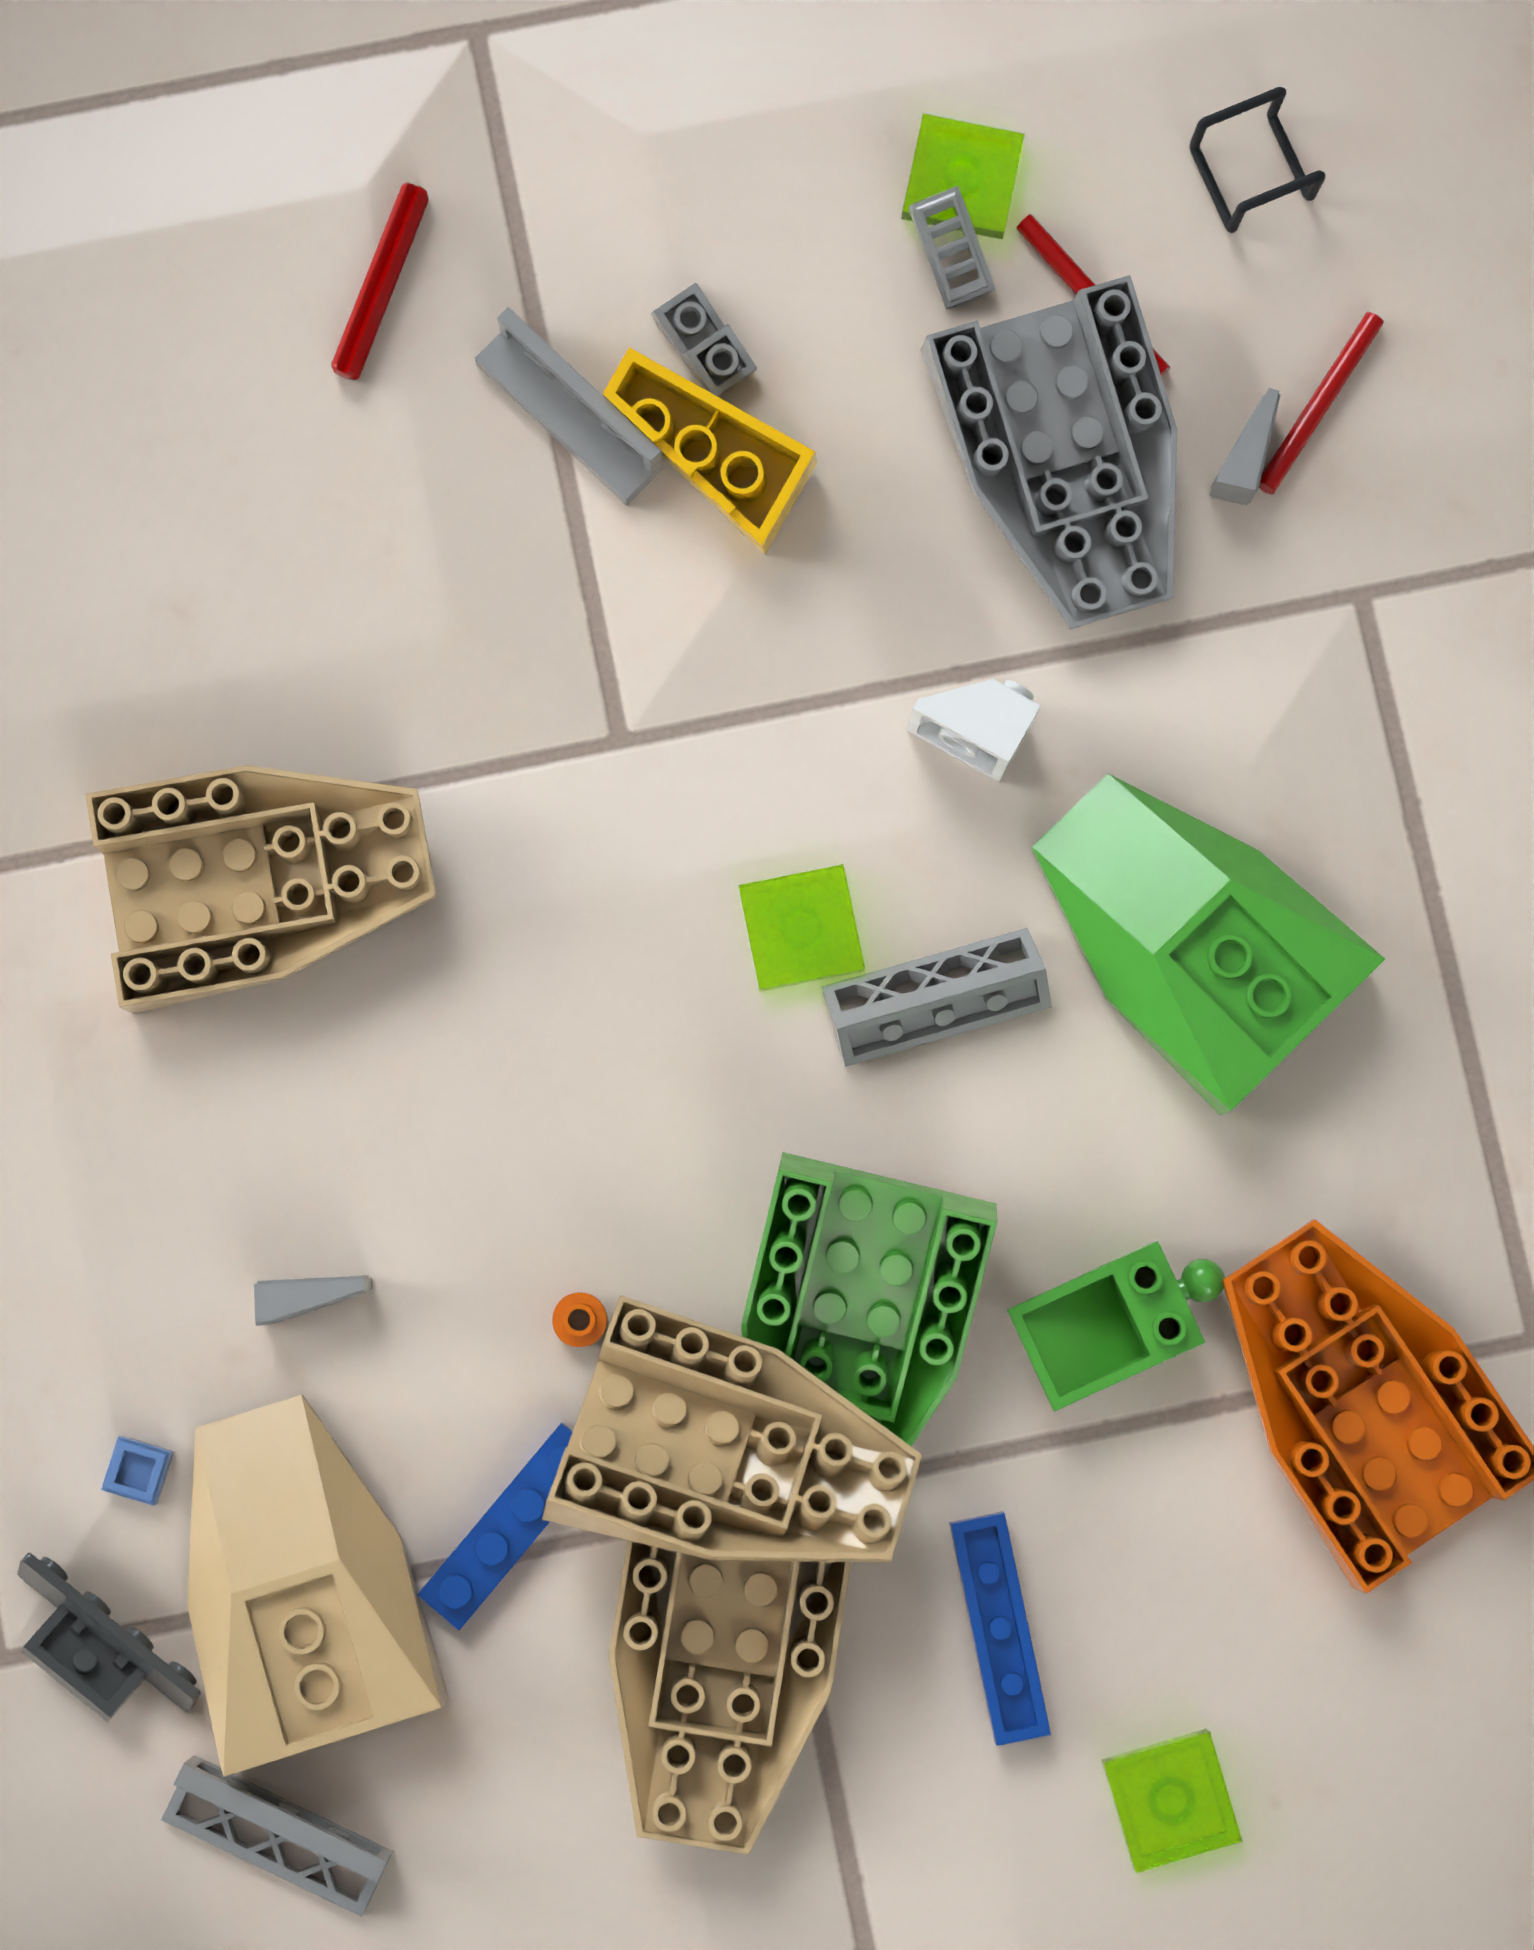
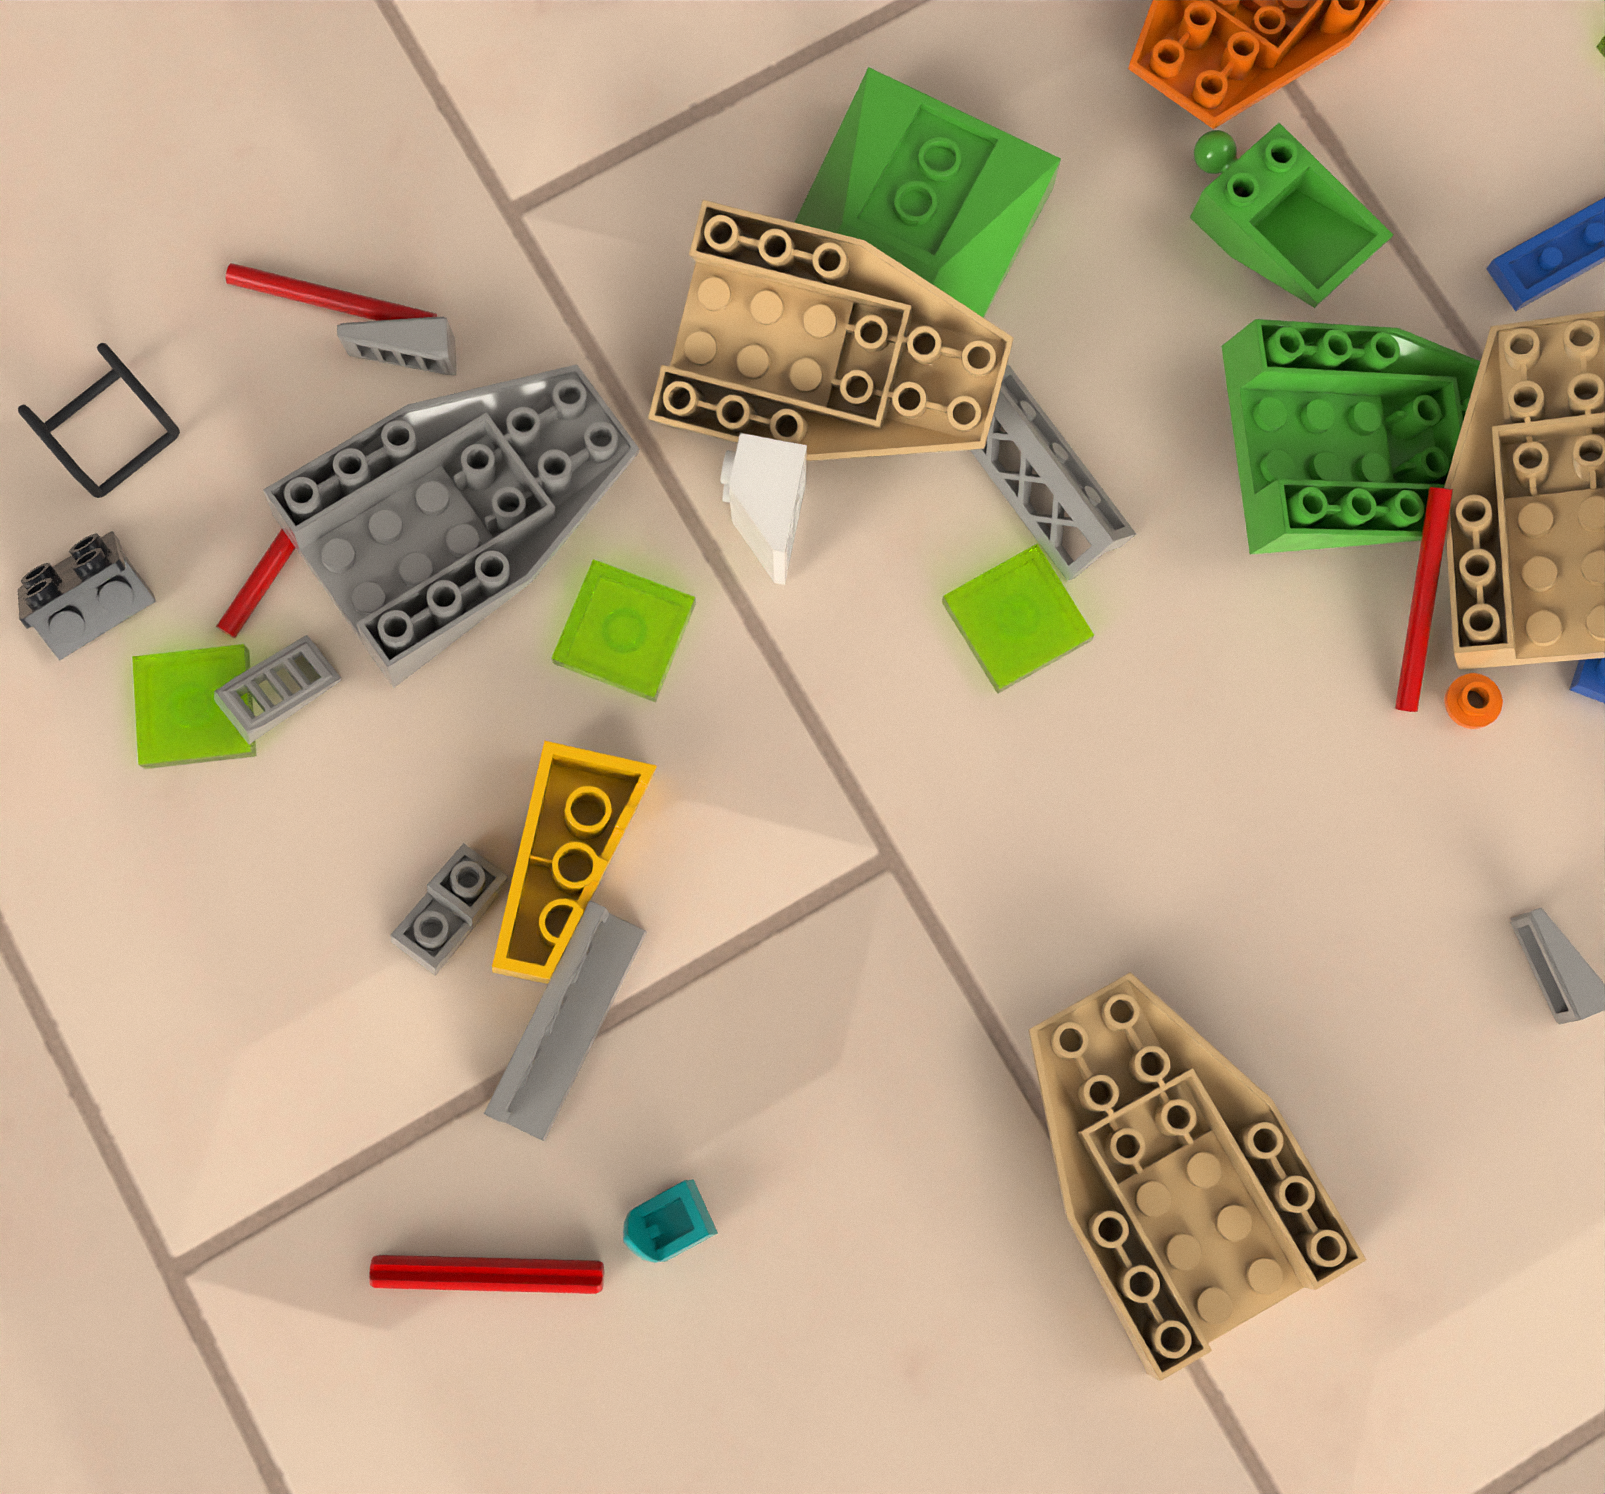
camera: 105 degrees left, 5 degrees down
(366, 437) = (668, 1224): none -> teal plate
(686, 1299) = (1423, 599): none -> red bar
(908, 569) = (624, 630): none -> clear neon green tile
(1097, 104) = (82, 594): none -> bracket
(1106, 815) = (824, 346): none -> tan wedge

